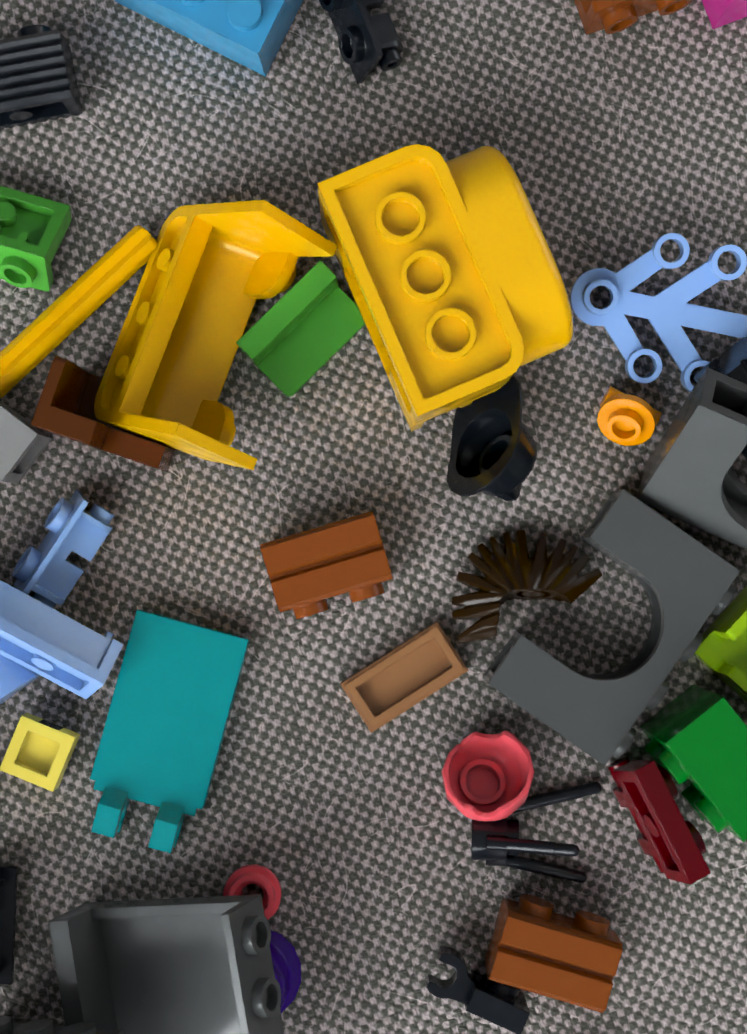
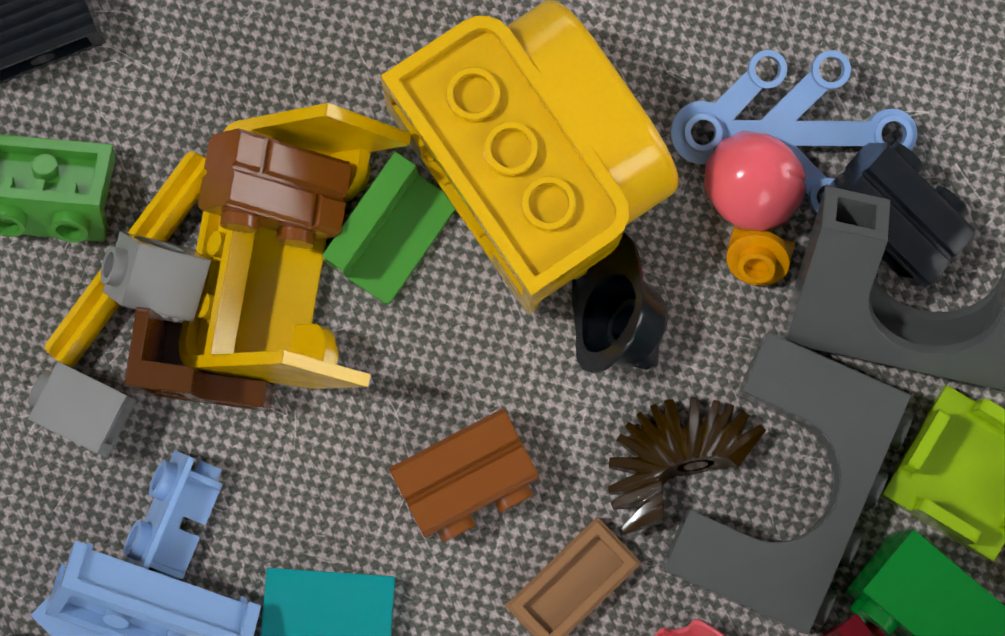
camera: 10 degrees left, 5 degrees down
(82, 331) = (154, 275): none -> light grey brick
(204, 270) = (274, 187): none -> dark orange brick
(638, 350) = (754, 181): none -> coral hair

